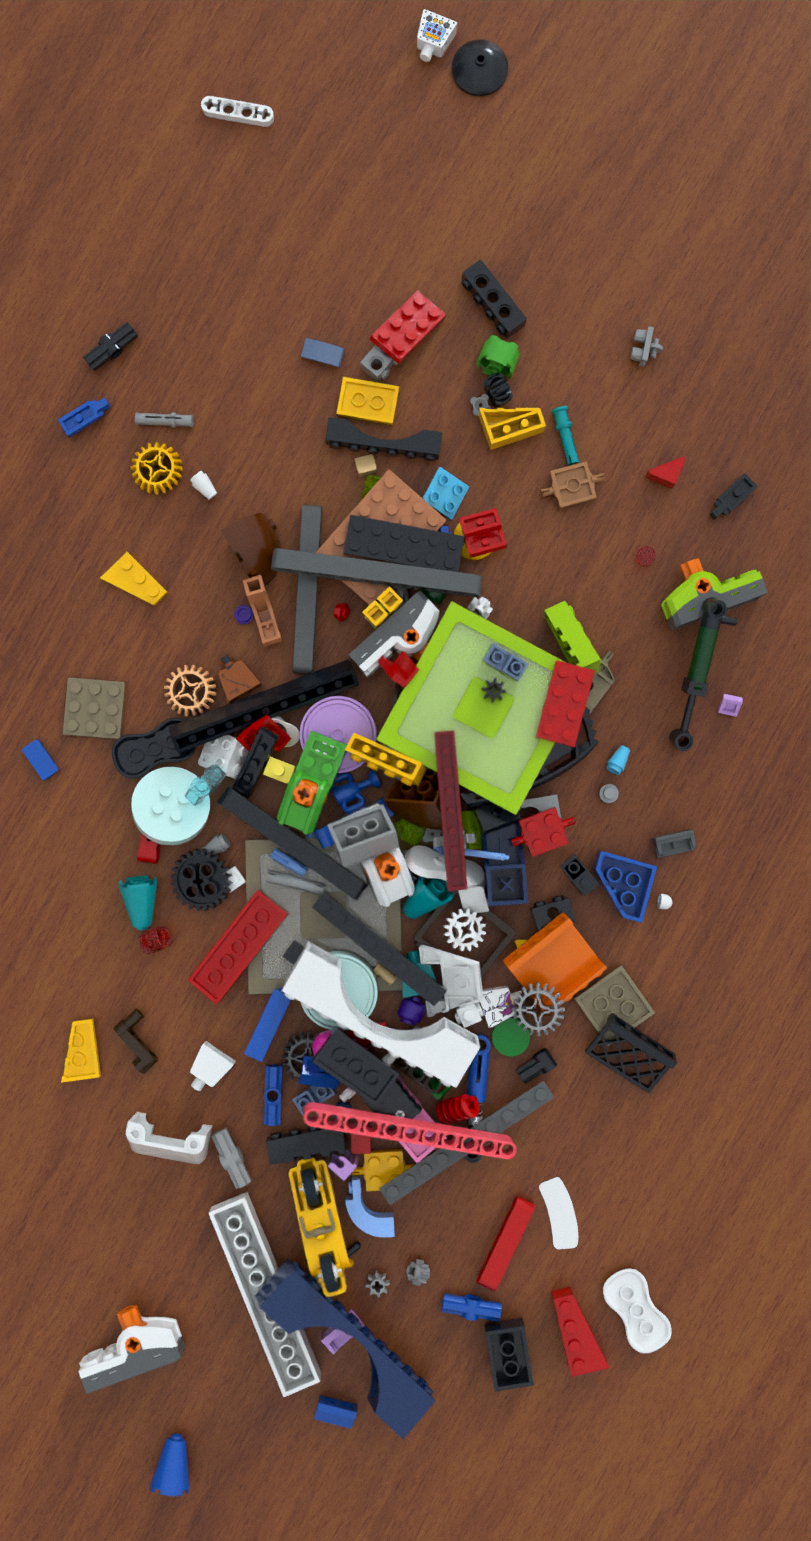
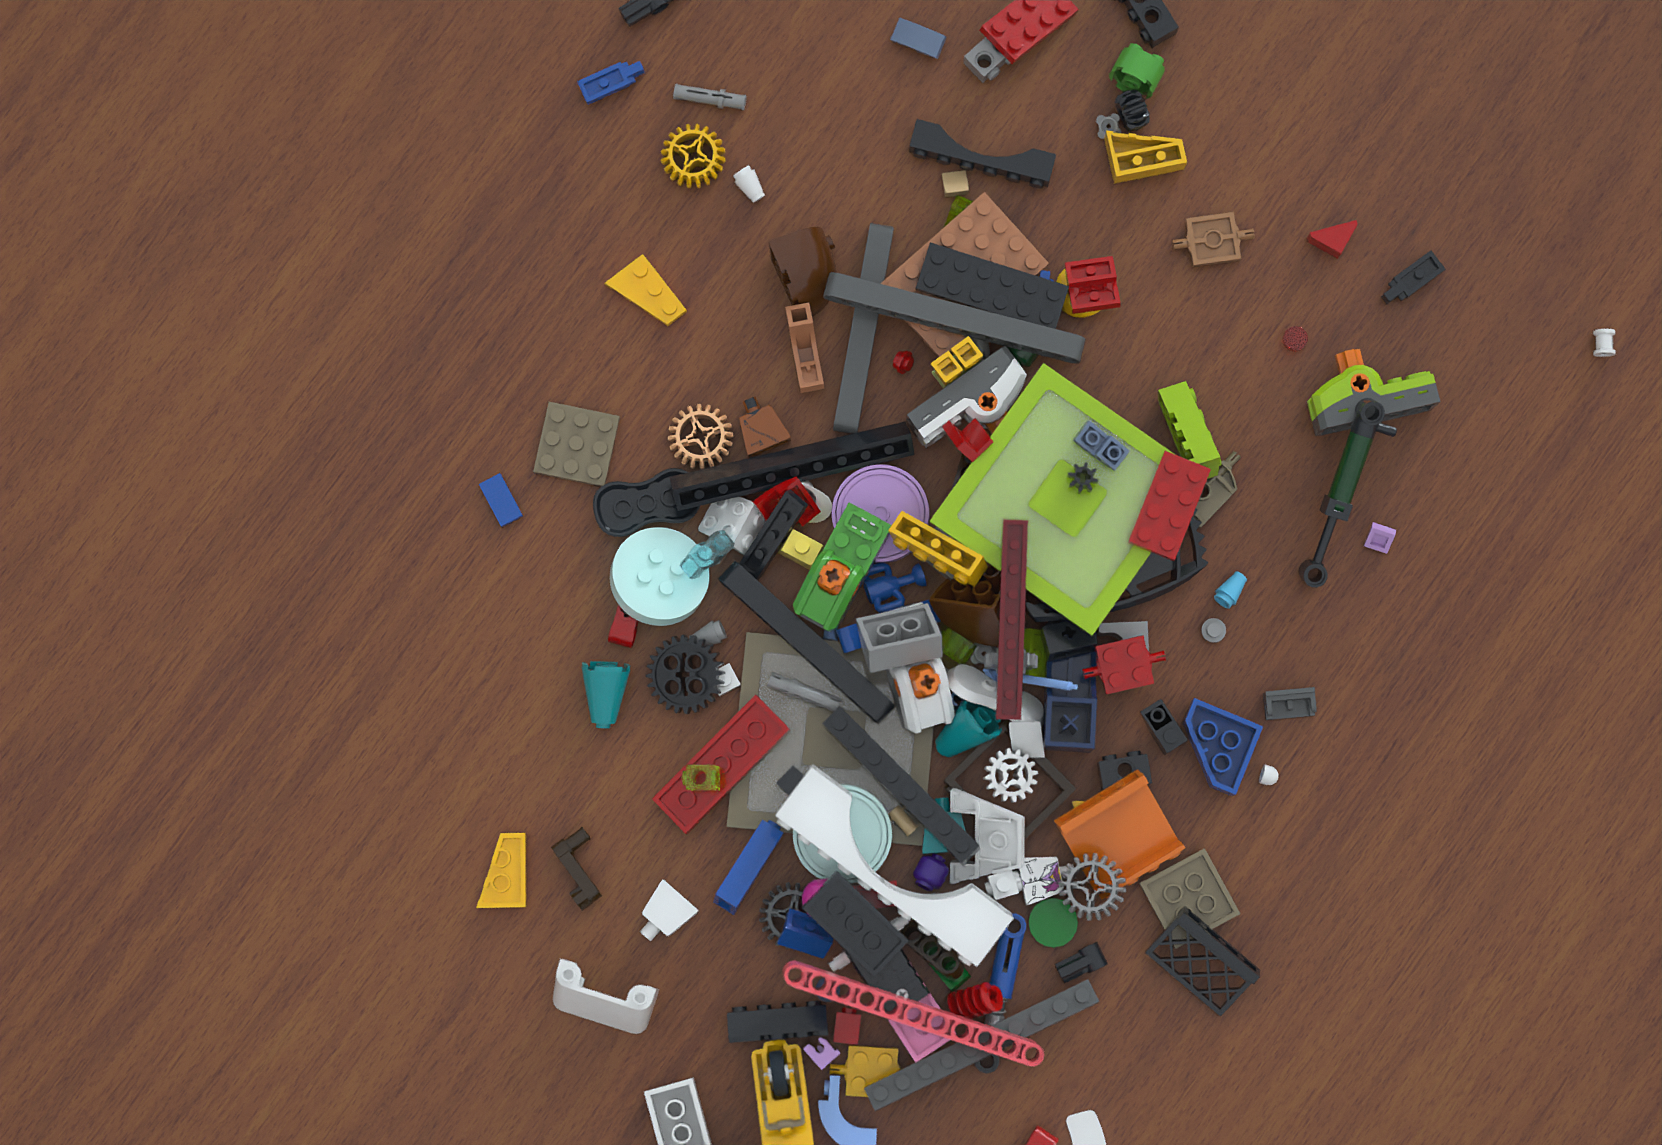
camera: 10 degrees right, 5 degrees down
(155, 940) = (619, 742): clear red gear -> none
(231, 961) = (712, 780): none -> clear neon green brick
(231, 1158) = (679, 1031): light grey piece -> none
(244, 614) = (779, 350): dark purple plate -> none
(273, 1082) = (740, 973): blue piece -> none
(289, 862) = (799, 666): medium blue axle -> none
(312, 1094) = (776, 968): sand blue slope -> none
(367, 401) = (967, 104): yellow plate -> none
(445, 493) = (1051, 230): medium azure hinge -> none
(480, 607) = (1079, 376): white gear -> none
(563, 426) = (1210, 166): teal pin -> none
(645, 337) = (1318, 88): light grey hips -> none

